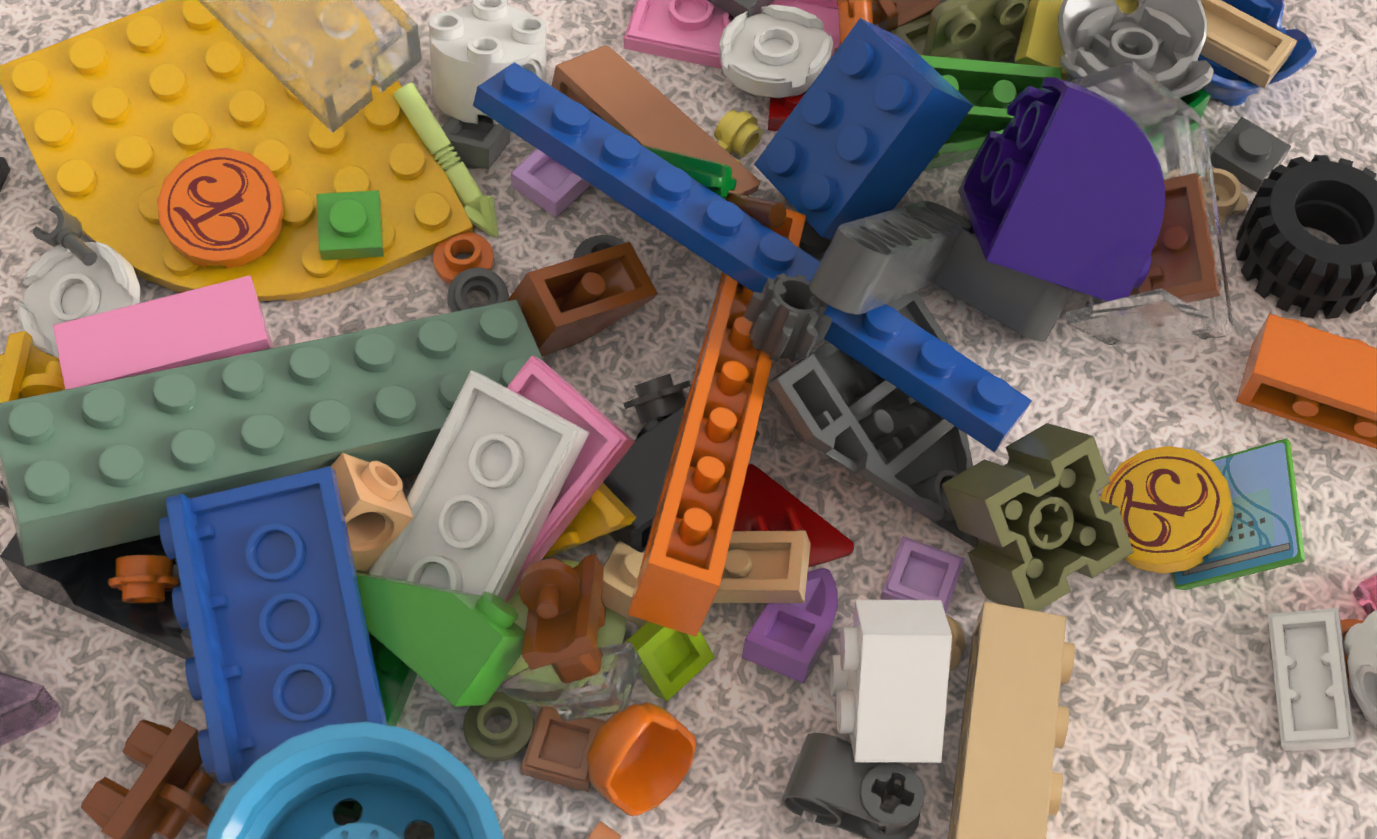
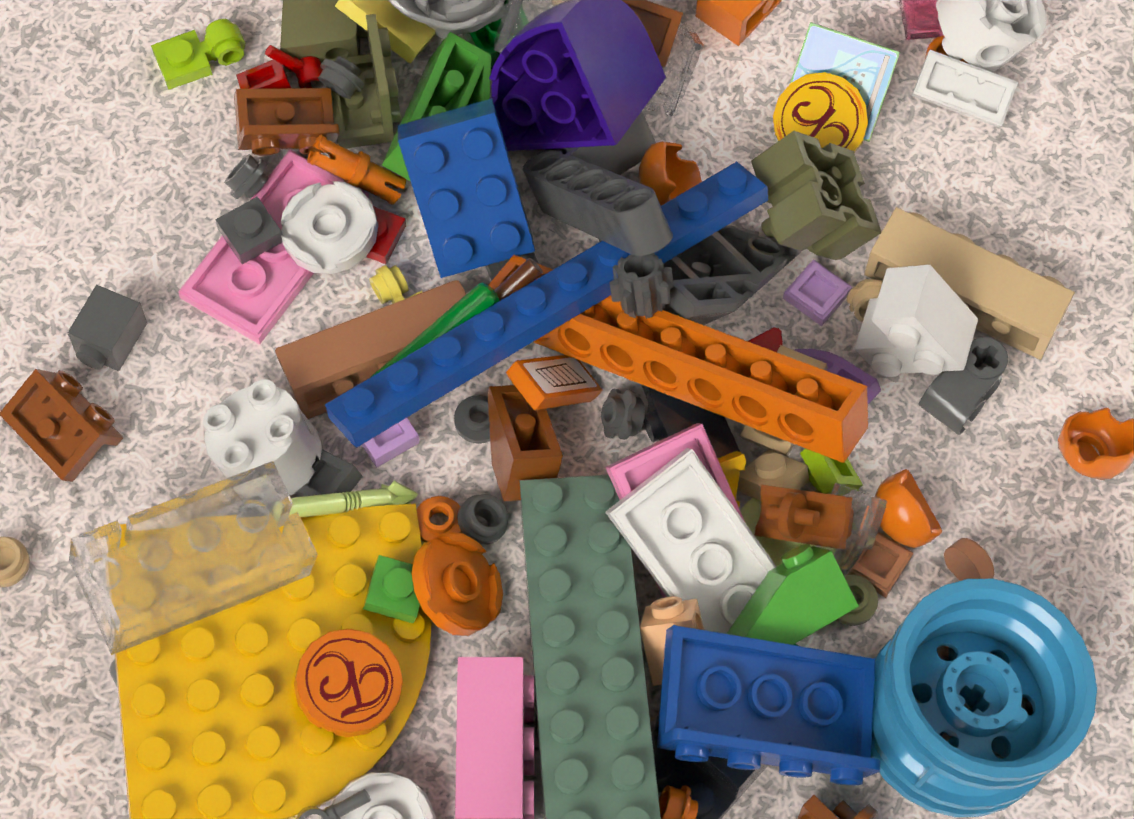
camera: 70 degrees left, 5 degrees up
(376, 278) = (457, 584): none -> orange tile
(662, 306) = (553, 381): none -> tile
(1006, 348) = (667, 172): none -> orange hair

